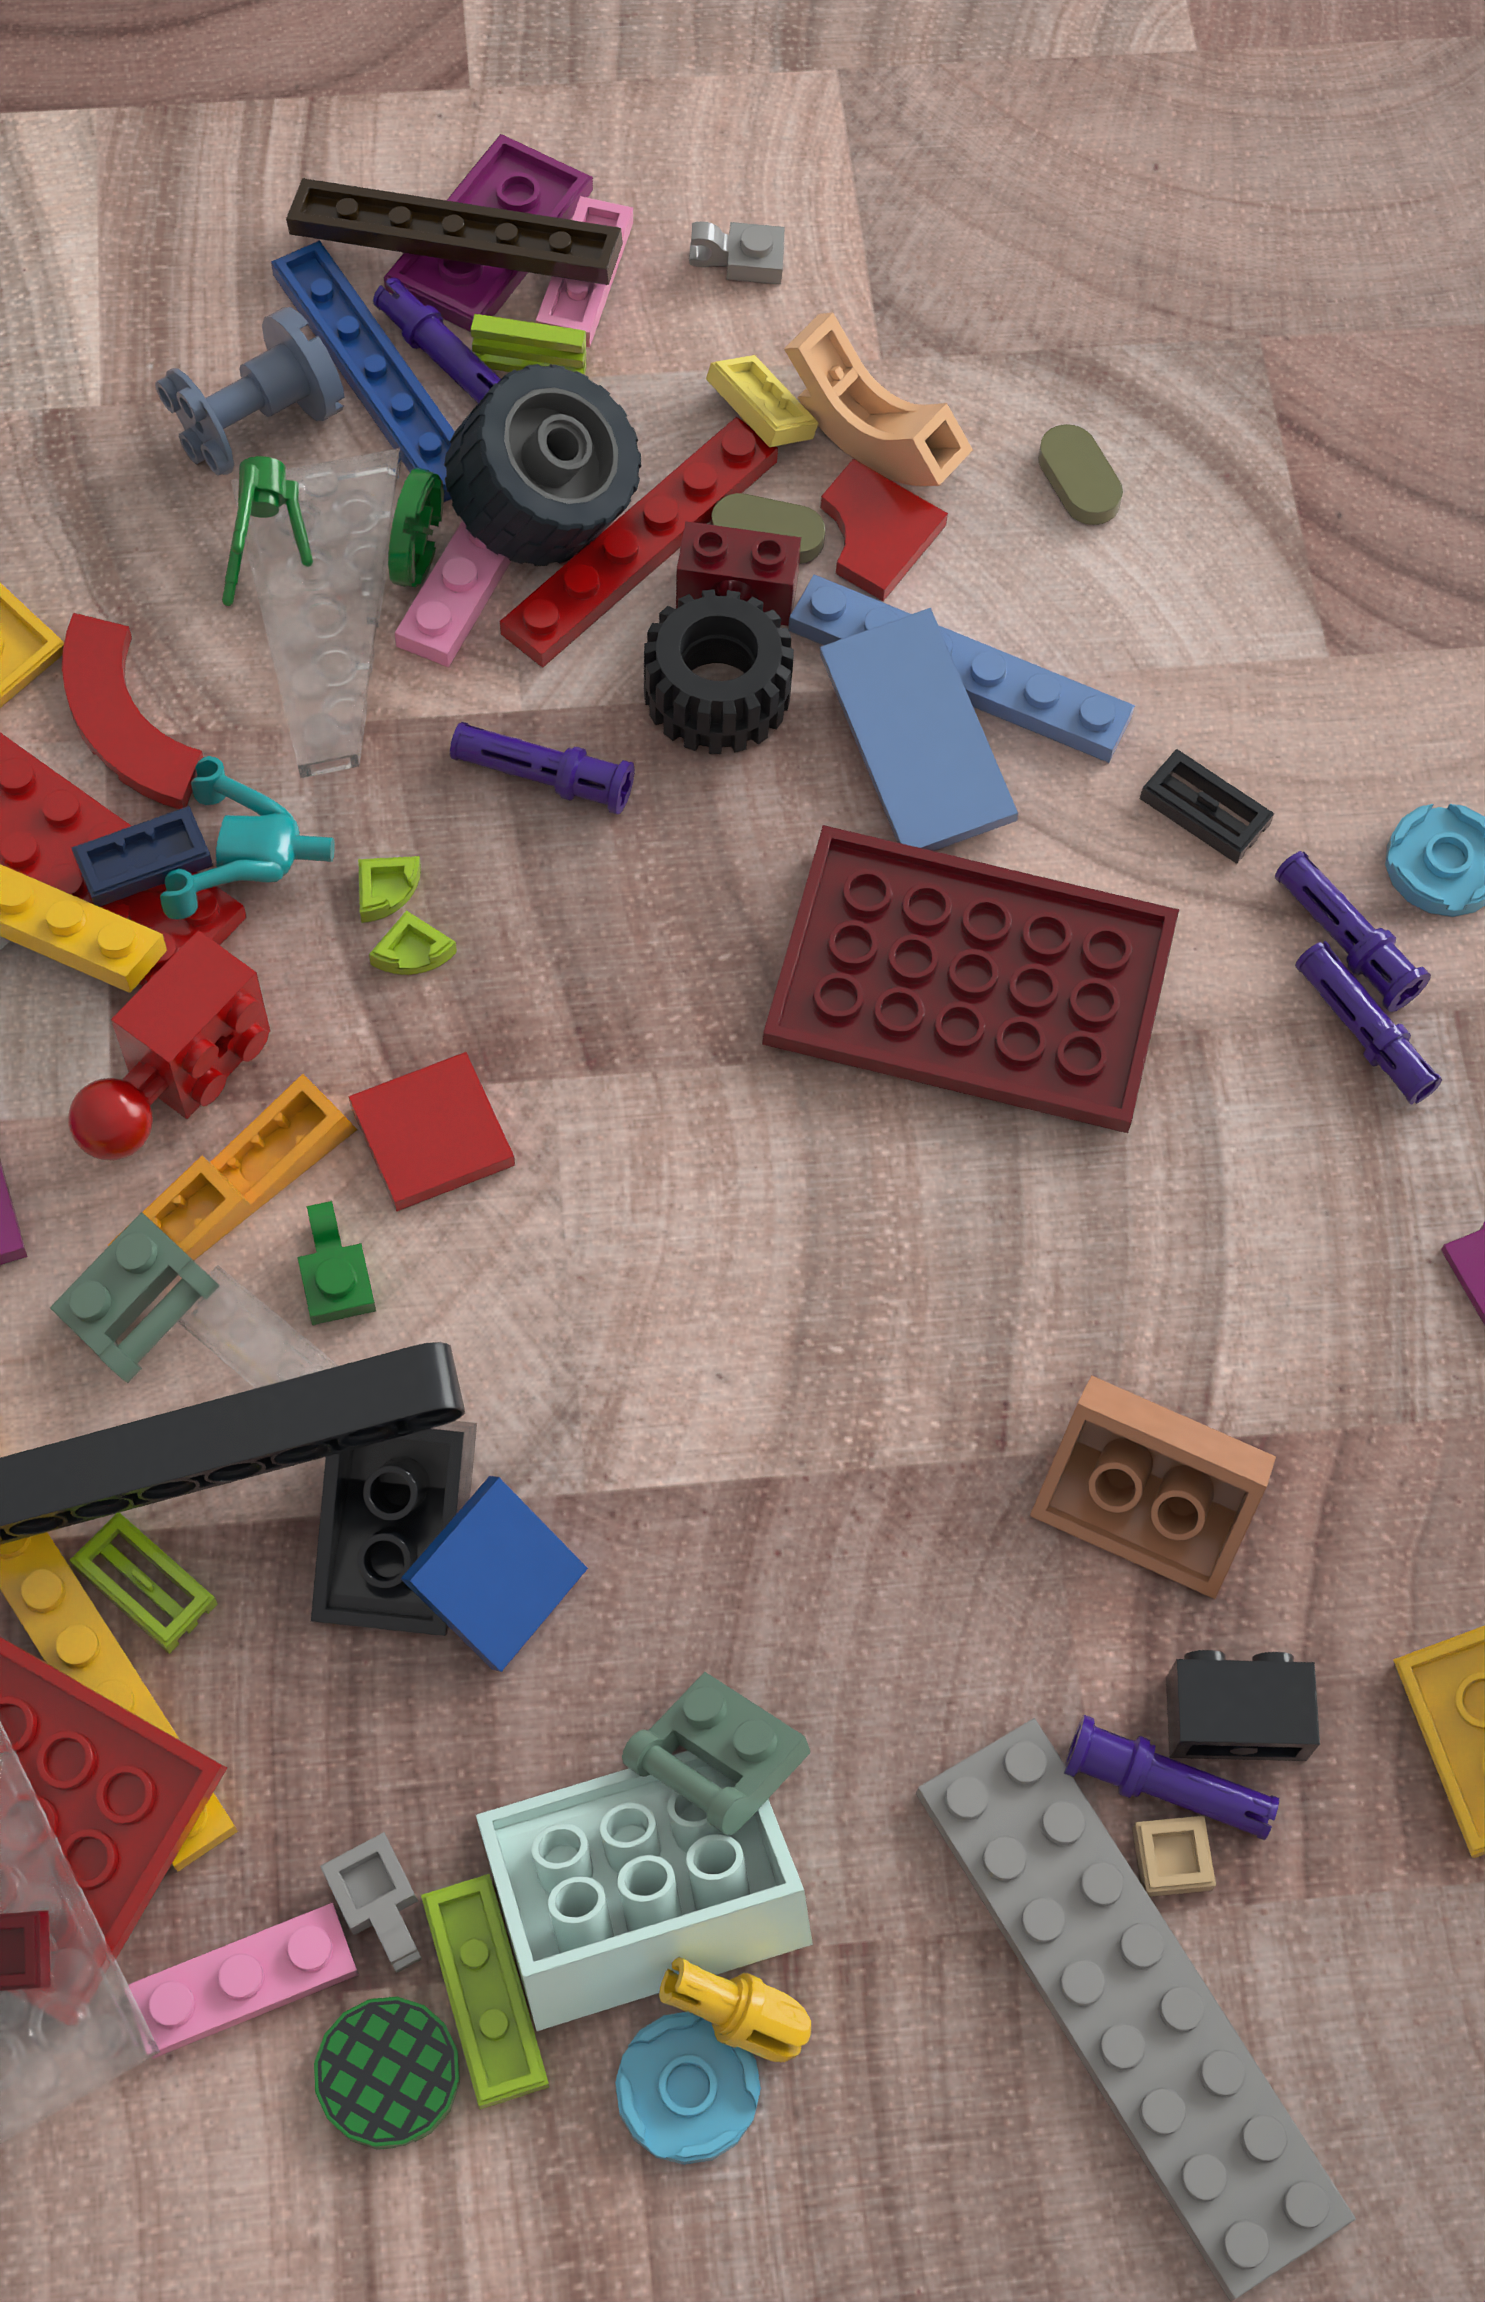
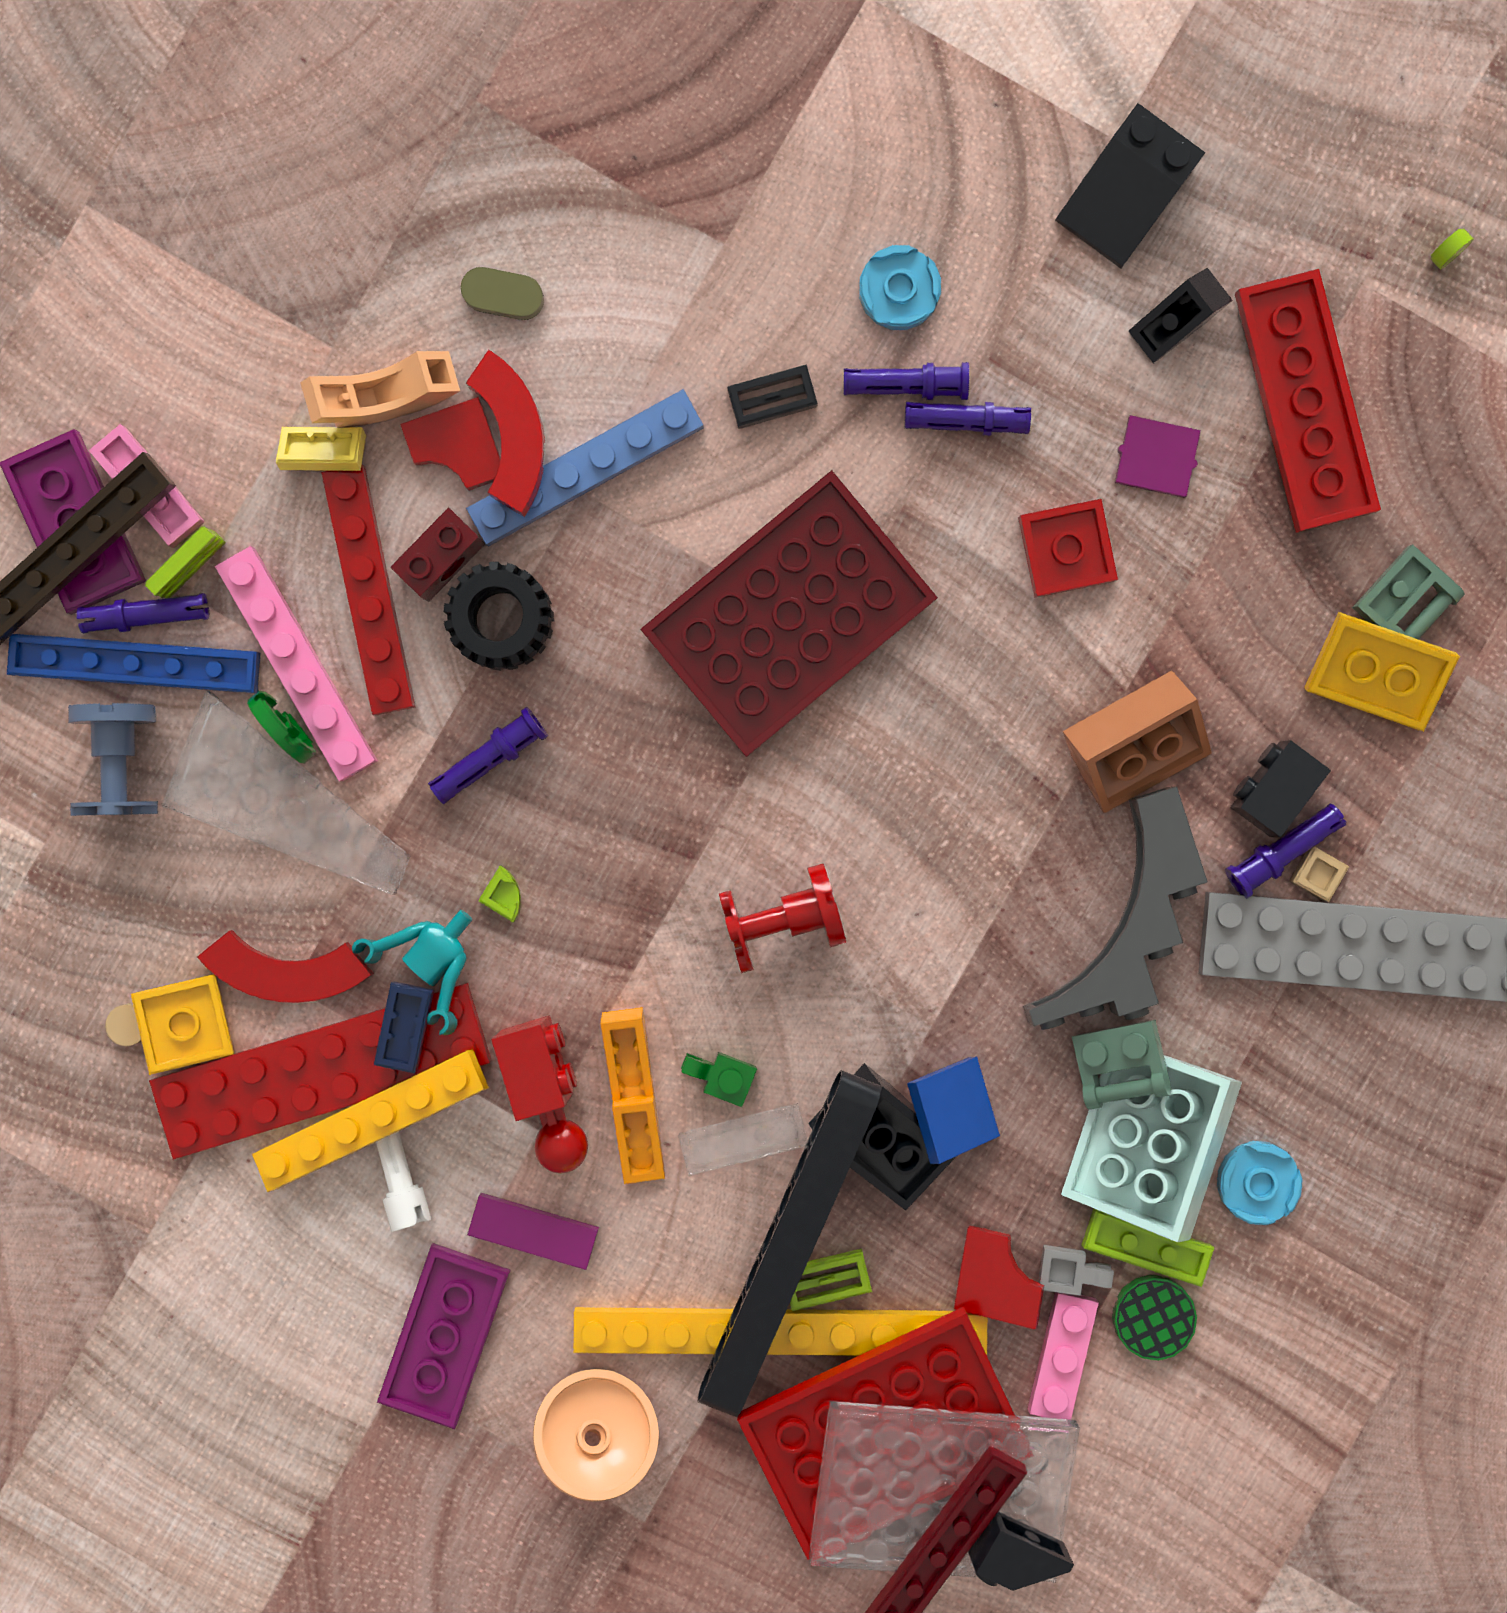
camera: 50 degrees left, 25 degrees up
(123, 1286) = (658, 1196): sand green plate -> none
(260, 494) = (193, 802): green plant -> none
(288, 1801) = (993, 1283): none -> red tile
(412, 947) = (552, 906): lime tile -> none
(431, 1131) = (674, 971): red tile -> none
(542, 465) = (294, 626): black wheel -> none
(634, 1219) = (800, 913): none -> red piece
(740, 2009) = (1251, 1139): yellow arm -> none
(748, 251) = (199, 371): light grey plate -> none
(775, 517) = (412, 509): olive tile -> none
(918, 733) = (617, 530): medium blue tile -> none
(925, 1662) = (1119, 975): none -> dark grey arch
(941, 572) = (520, 432): none -> red tile
(1316, 1243) = (1068, 548): none -> red tile

